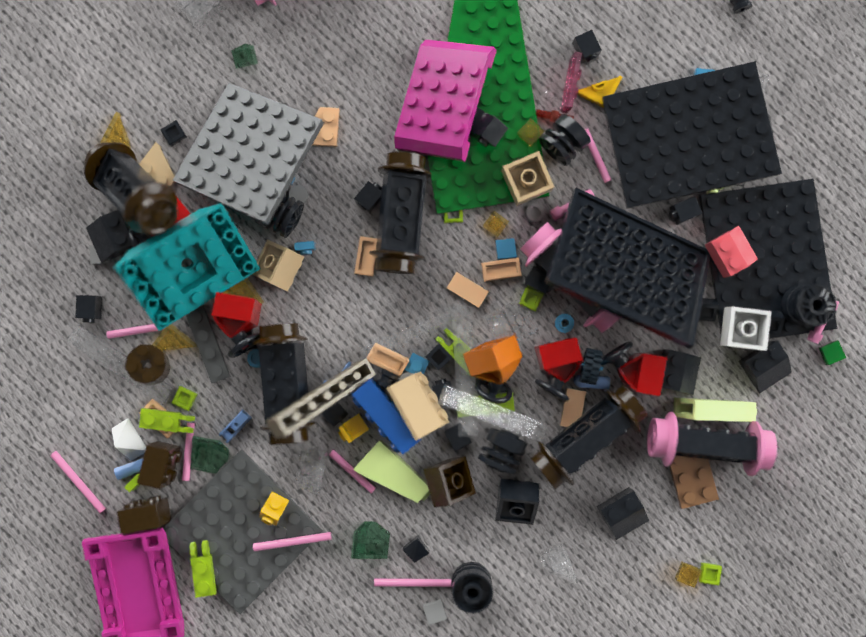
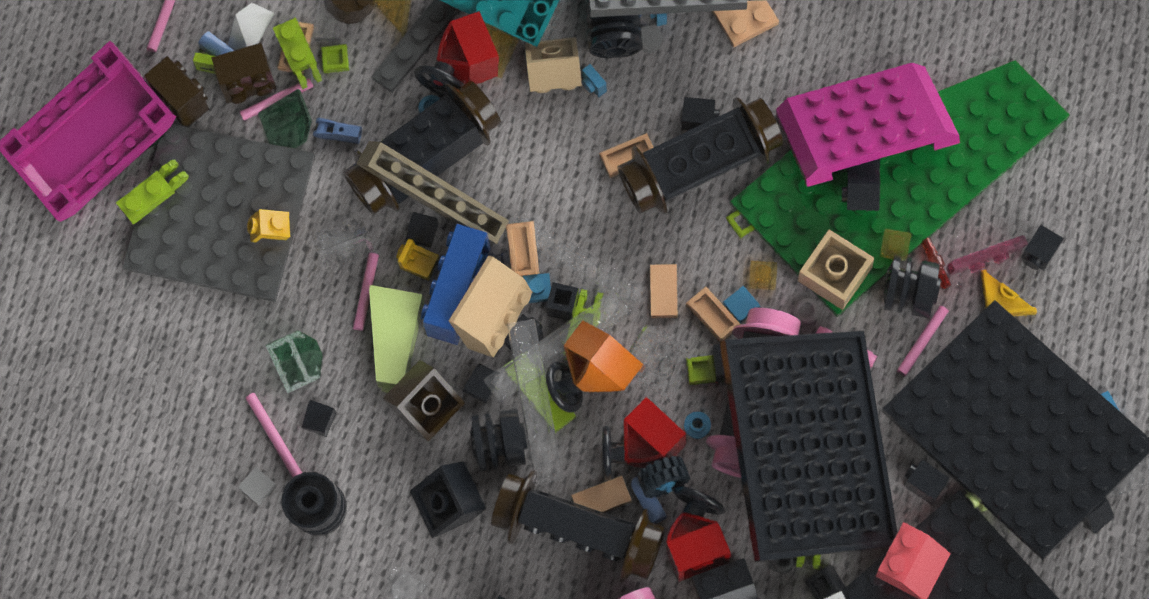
camera: 65 degrees right, 15 degrees down
(292, 541) = (244, 271): bright pink bar -> none

